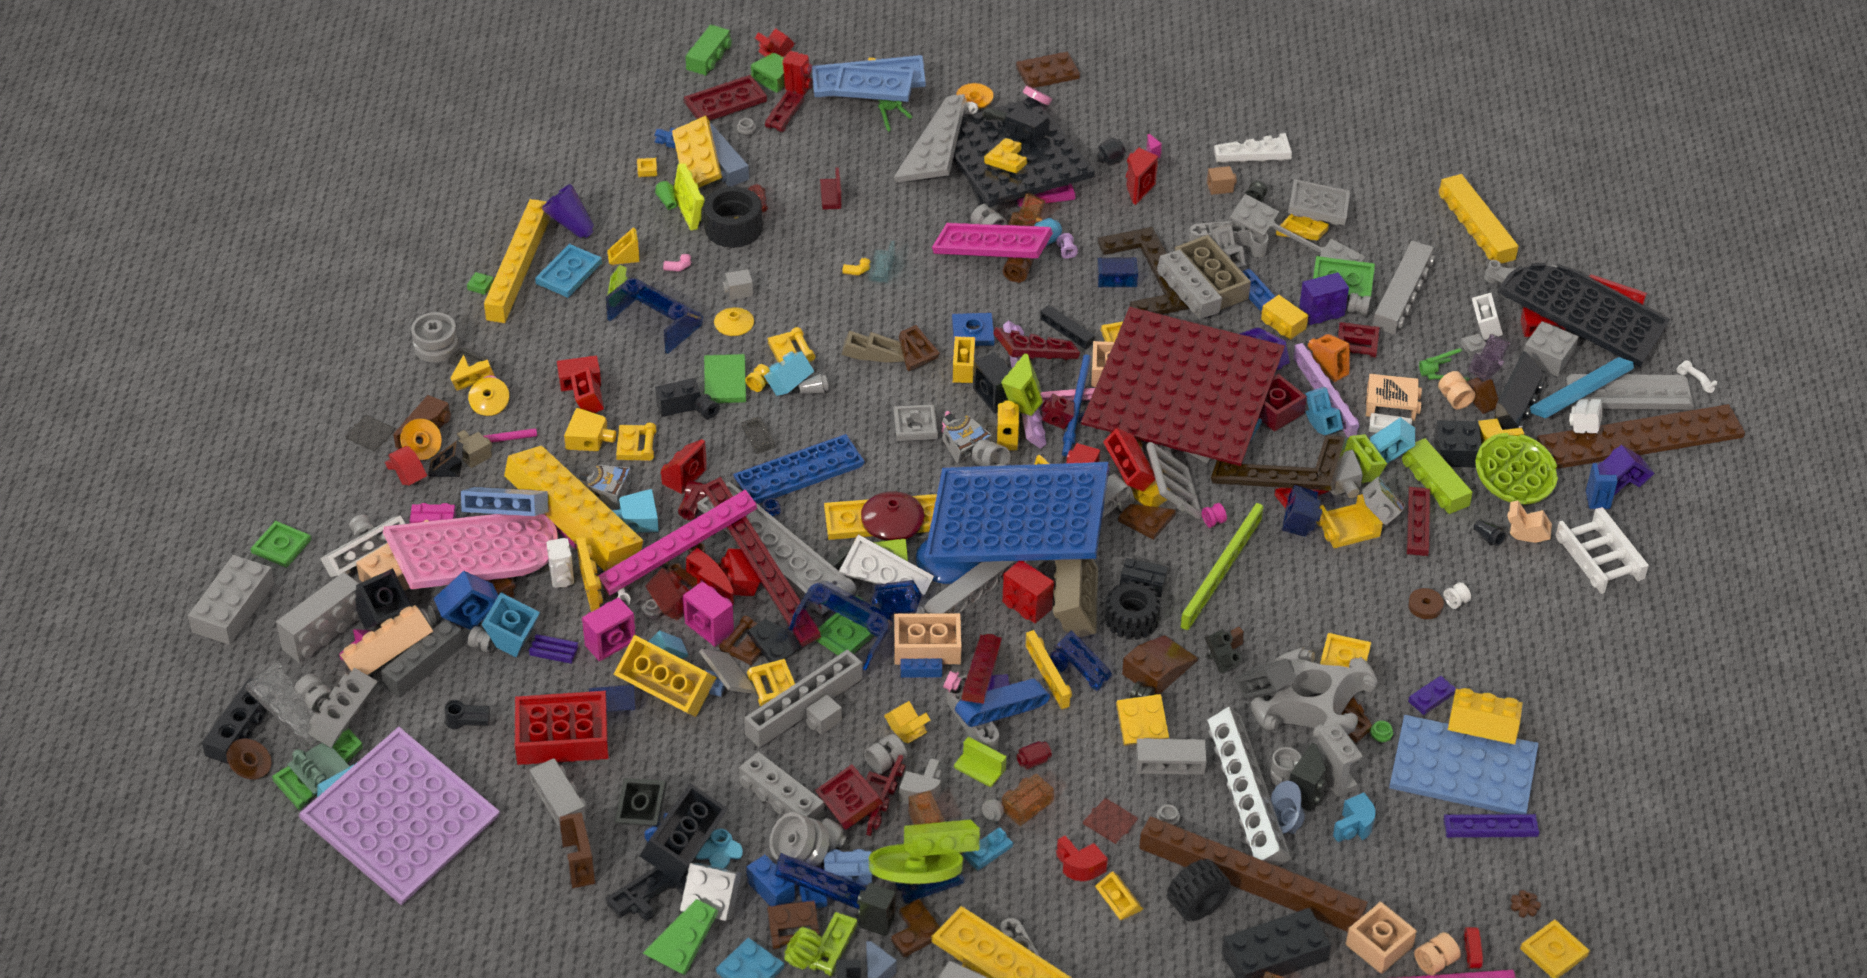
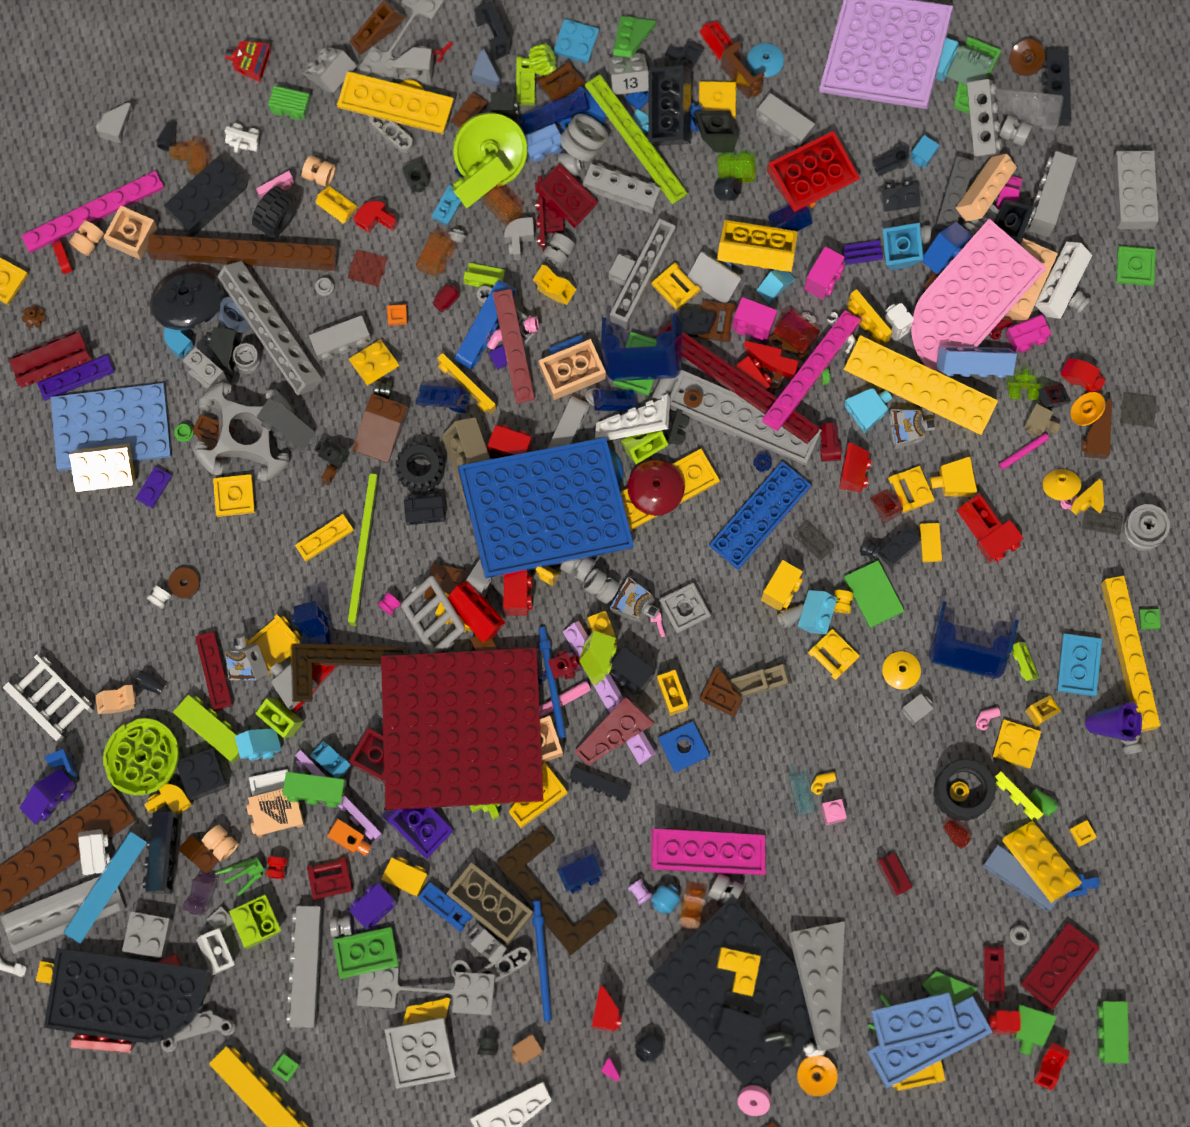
camera: 160 degrees right, 30 degrees up
(426, 711) = (924, 152): none -> dark azure brick
(464, 477) = (1015, 388): none -> clear neon green hips
(478, 684) = (900, 195): none -> black bracket
(539, 878) = (768, 67): none -> dark azure dish
(581, 910) = (716, 38): none -> red slope
(619, 847) = (718, 96): none -> yellow plate
(642, 764) = (739, 167): none -> clear neon green brick
(643, 399) = (930, 542): none -> yellow tile
(663, 240) = (1016, 744): none -> yellow plate
(664, 747) = (727, 189): none -> black head
(669, 430) = (886, 506): none -> clear red slope
(740, 825) = (636, 139): none -> lime tile
(812, 398) = (781, 586): none -> yellow brick
(814, 562) = (692, 404): none -> reddish brown plate
(830, 114) = (942, 984): none -> bright green wing
(860, 241) = (833, 812): none -> bright pink brick
(1014, 892) = (412, 170): none -> pearl dark grey brick
(1096, 759) = (397, 315): none -> orange plate
(1127, 928) = (324, 173): none -> light nougat wheel
(1182, 224) = (538, 922): none -> blue bar
(1186, 932) = (283, 181): none -> bright pink plate
(1189, 284) = (504, 873): light grey brick -> none
(1260, 590) = (324, 538): none -> yellow plate
(1318, 861) = (186, 298): none -> black brick
(1349, 385) = (314, 789): none -> bright green brick
(1406, 359) = (276, 867): none -> red wheel
(1443, 326) = (255, 922): none -> lime slope
(1447, 232) = (285, 1067): none -> bright green plate
(1517, 841) = (49, 358): none -> dark red brick
(1656, 359) = (45, 972): none -> yellow plate

